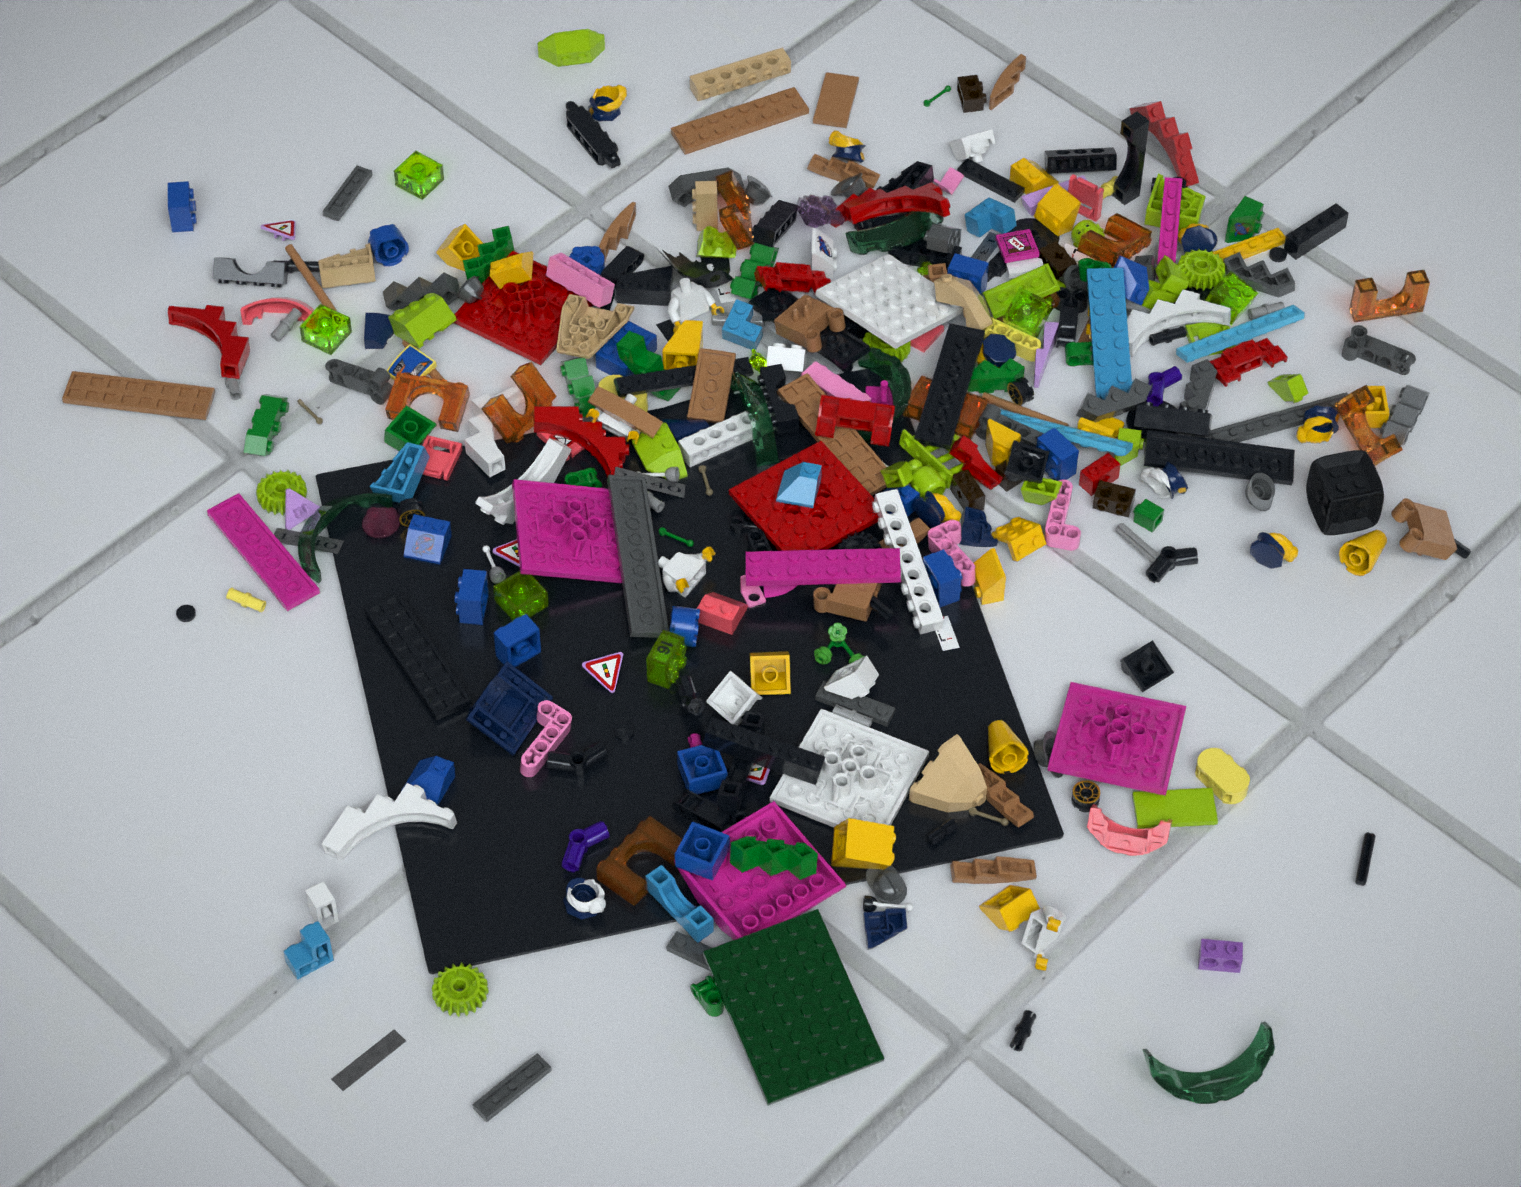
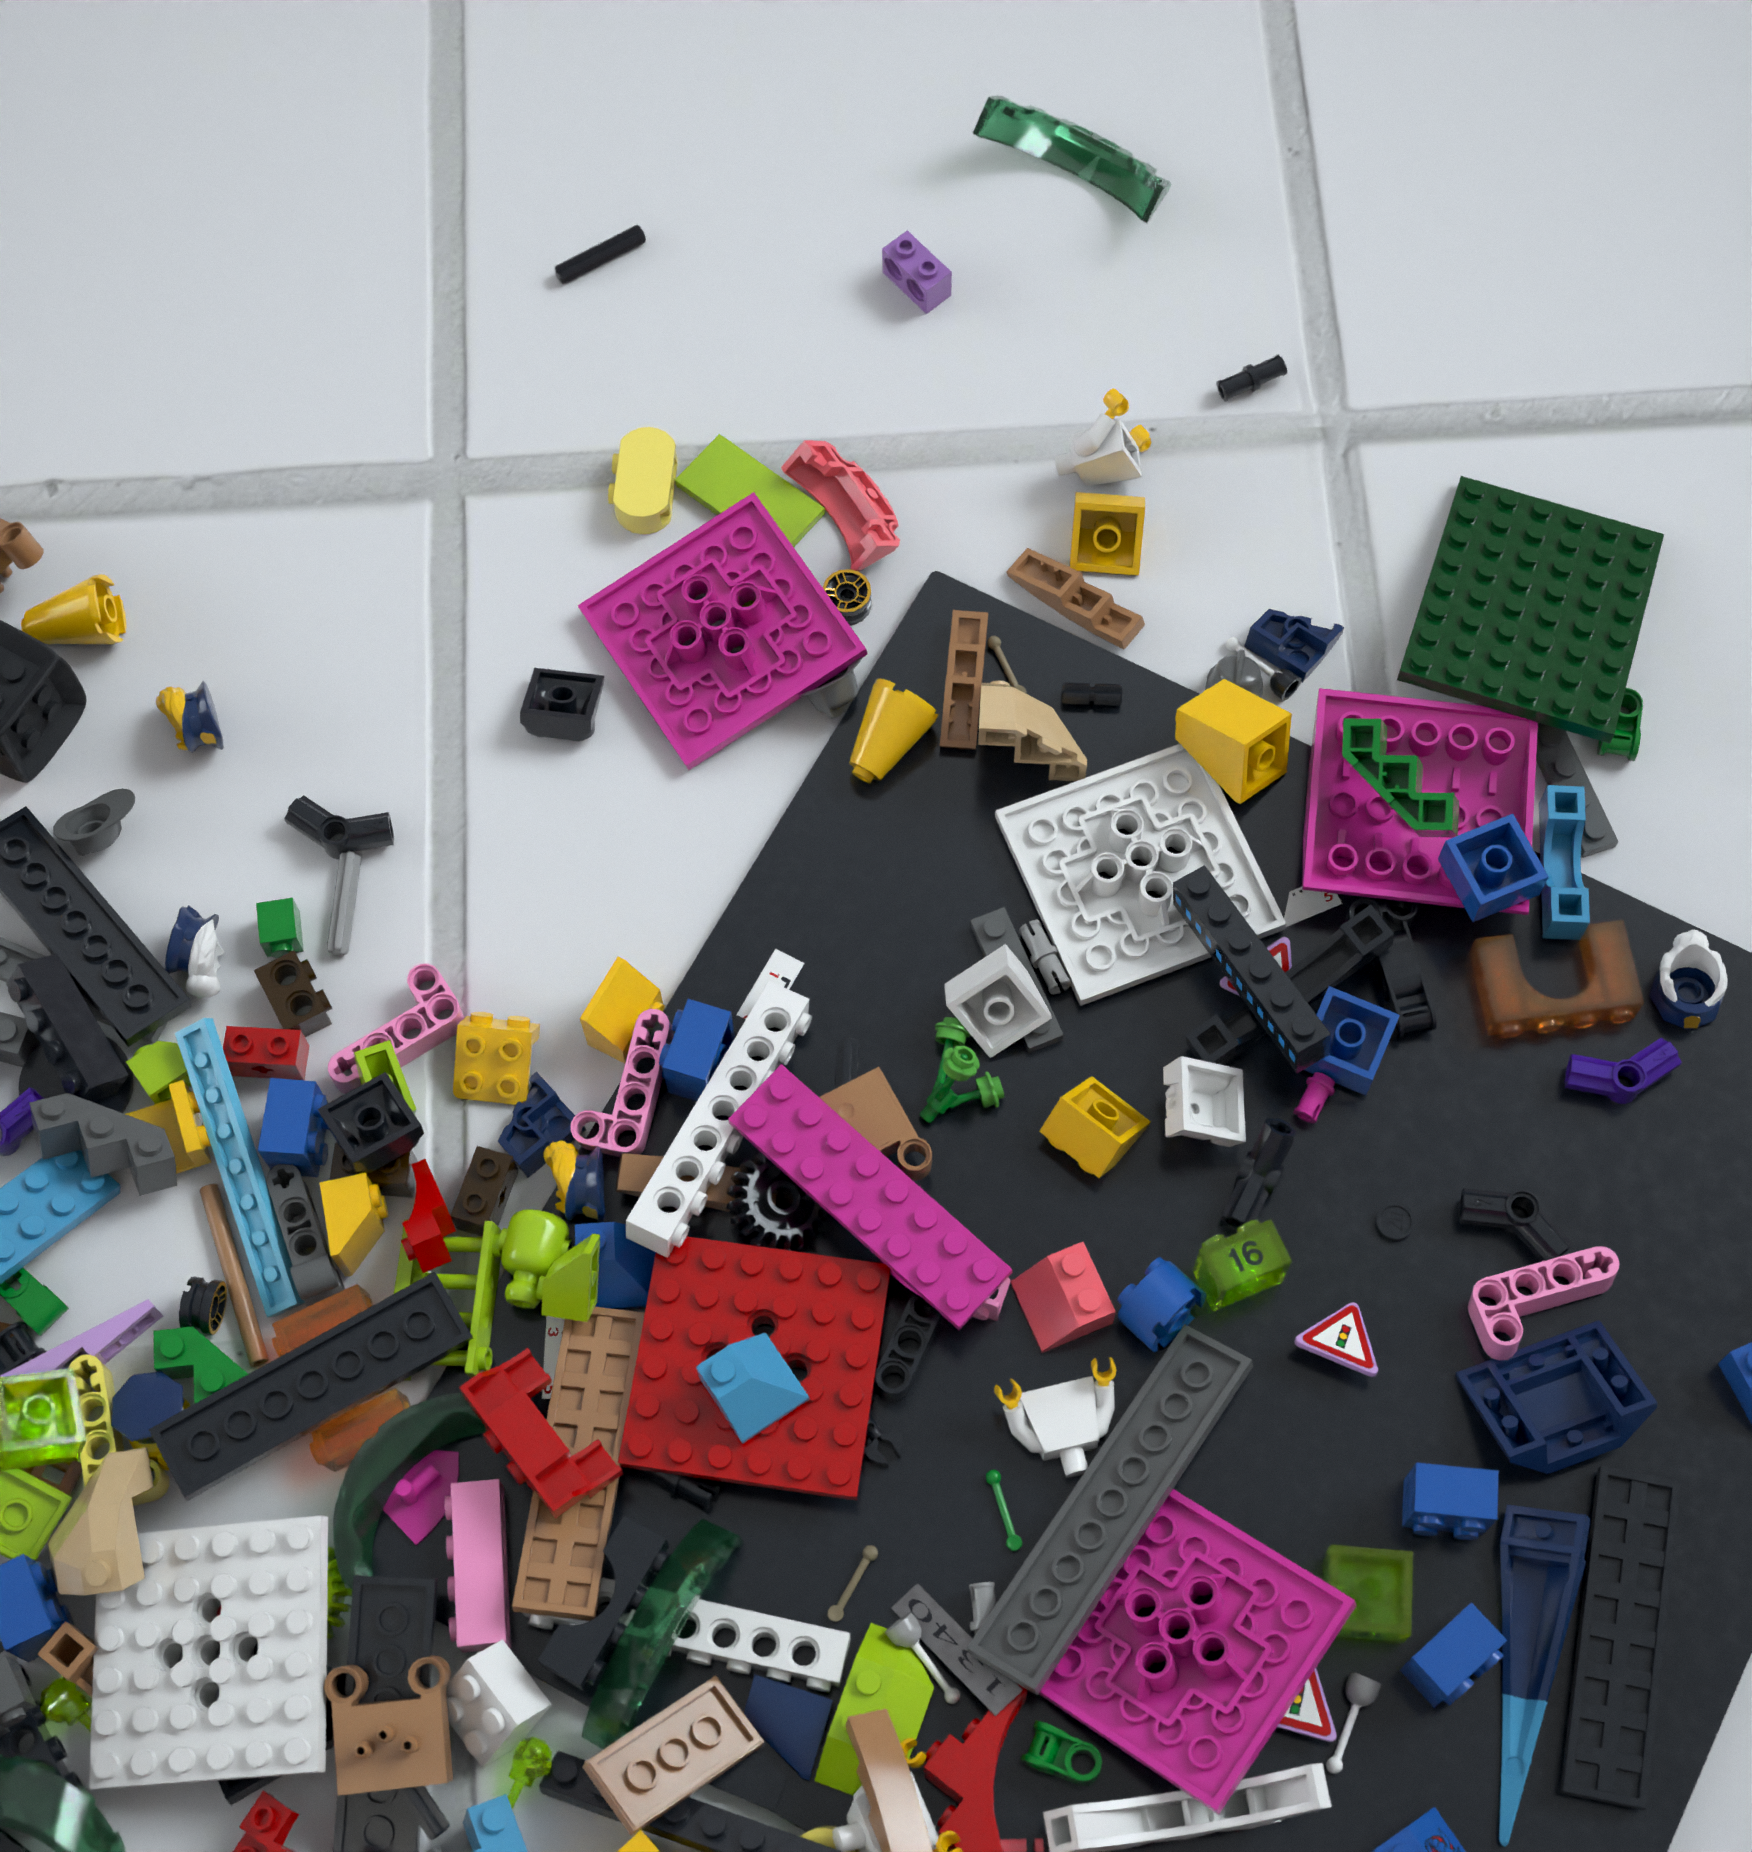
camera: 135 degrees left, 15 degrees up
(458, 644) = (1539, 1585): none -> dark blue plate

